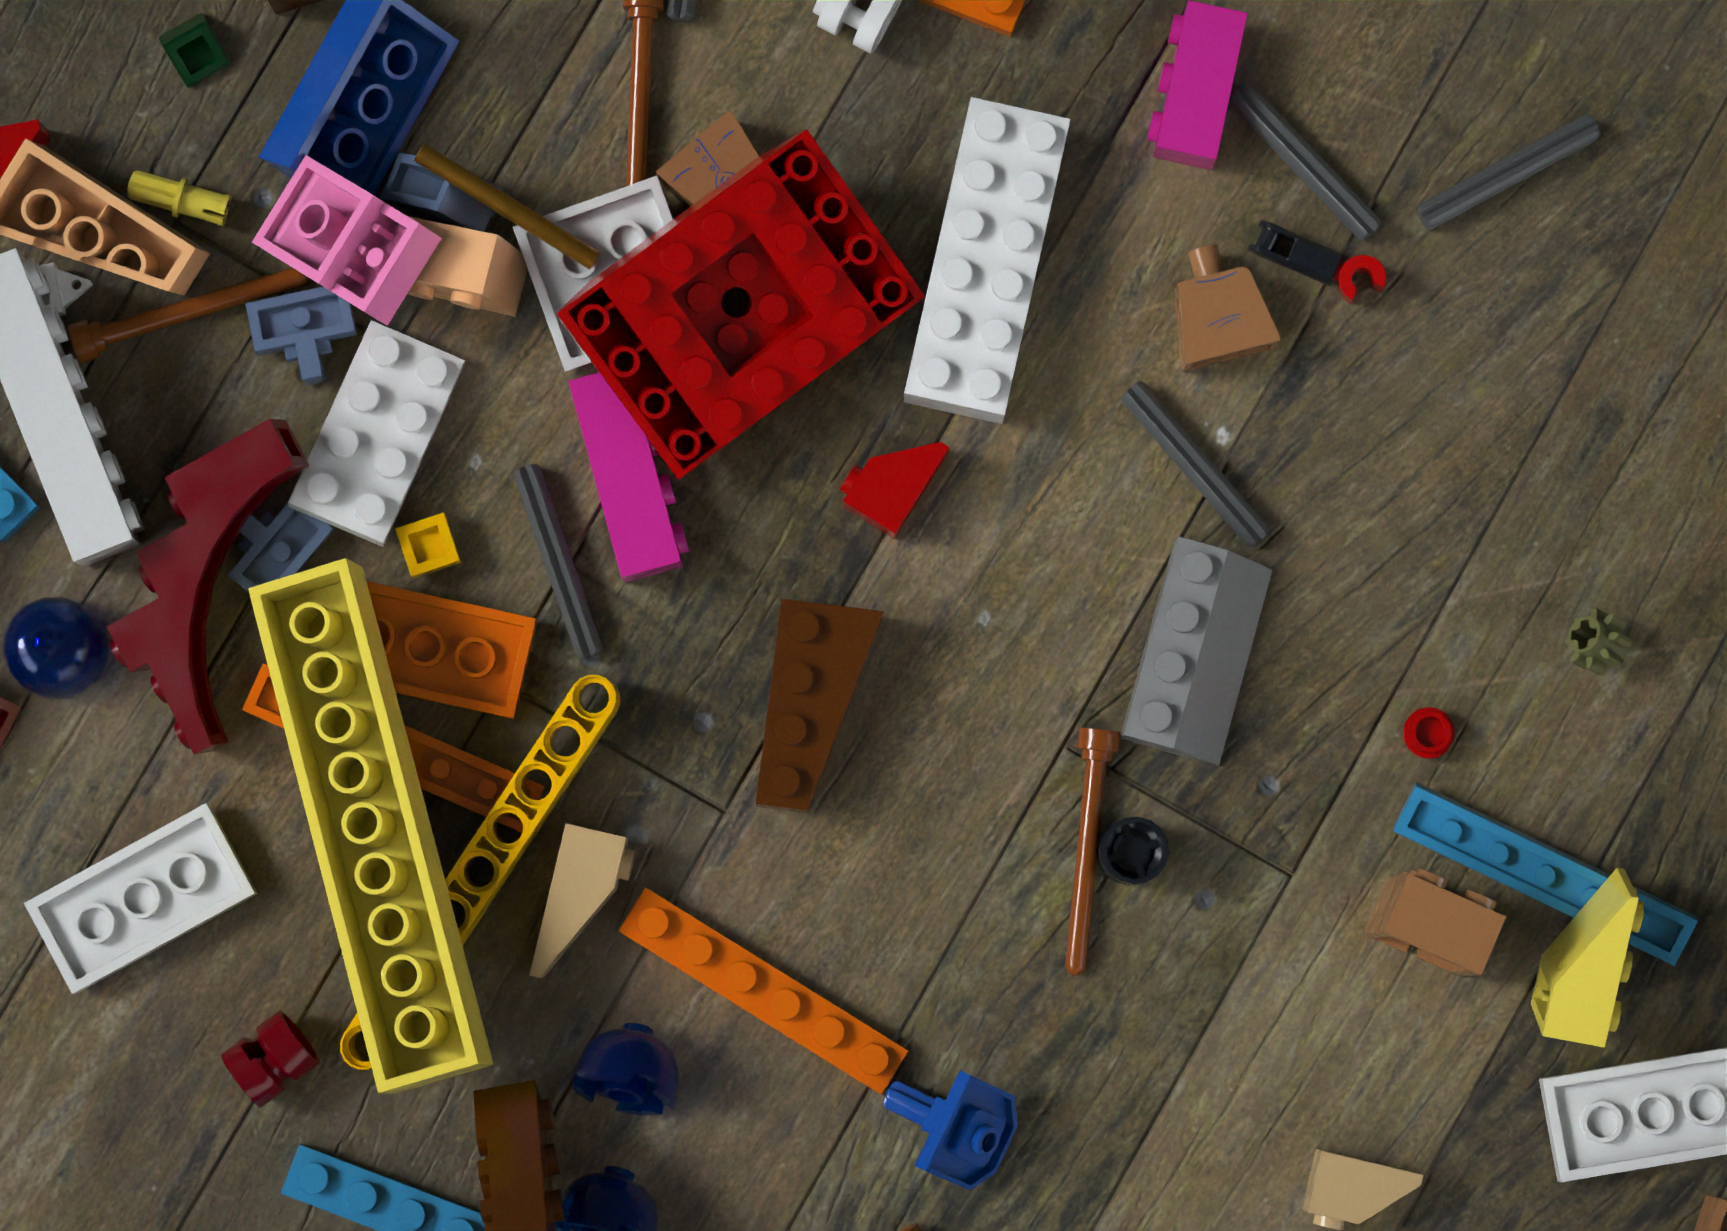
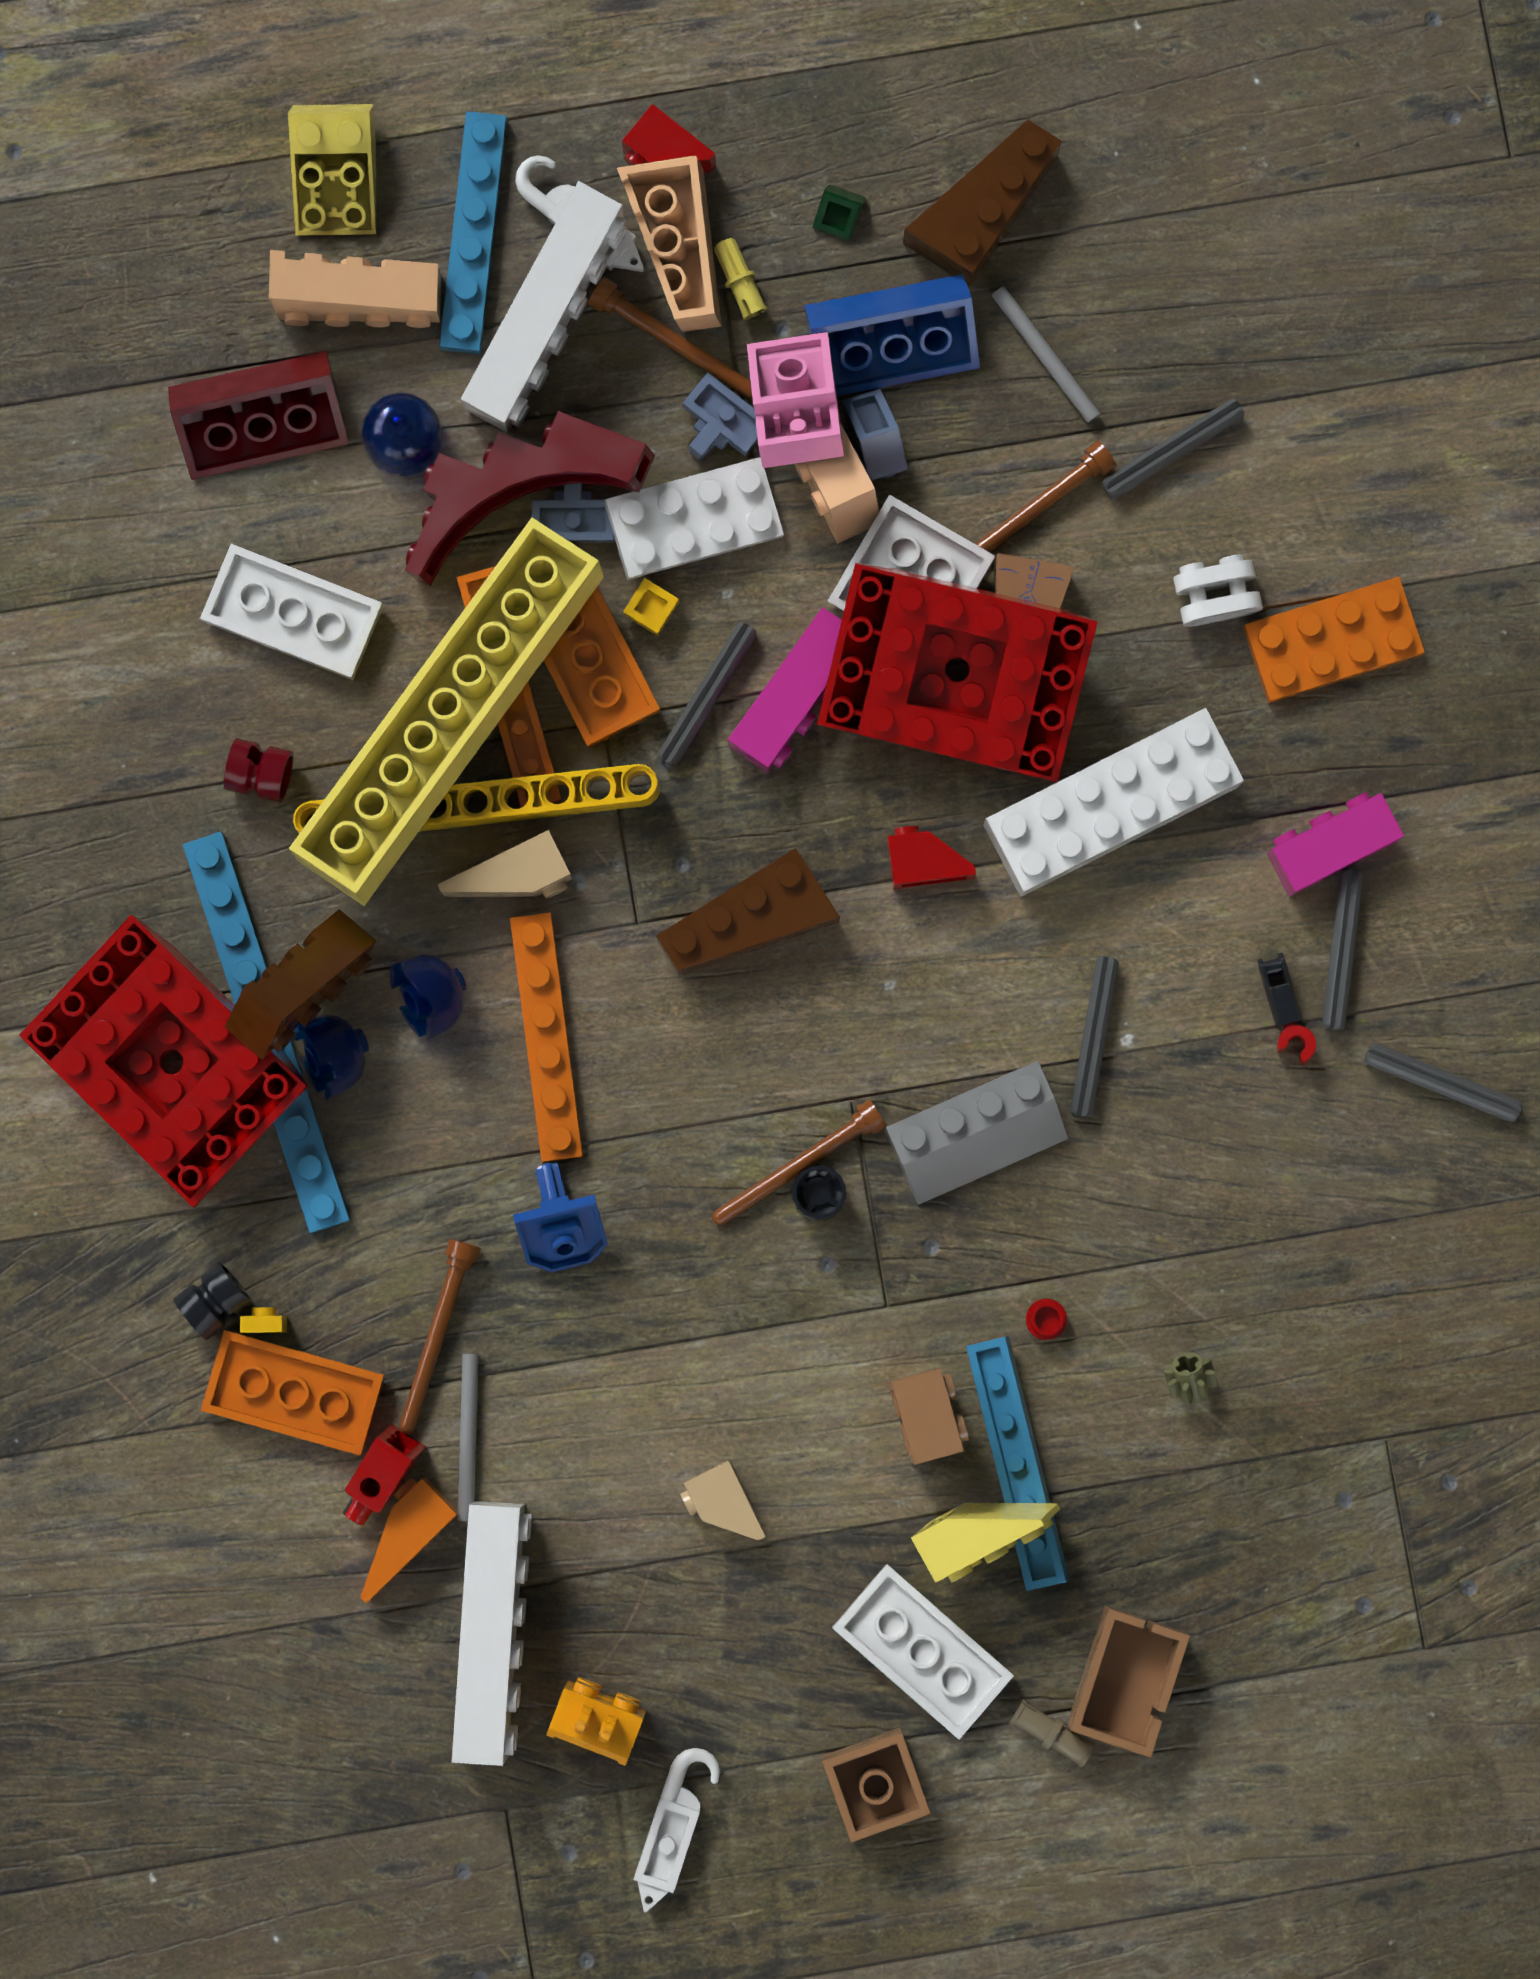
camera: 50 degrees right, 0 degrees up
(506, 206) = (898, 479): pearl gold bar -> none
(1220, 313) = (1201, 974): medium nougat torso -> none

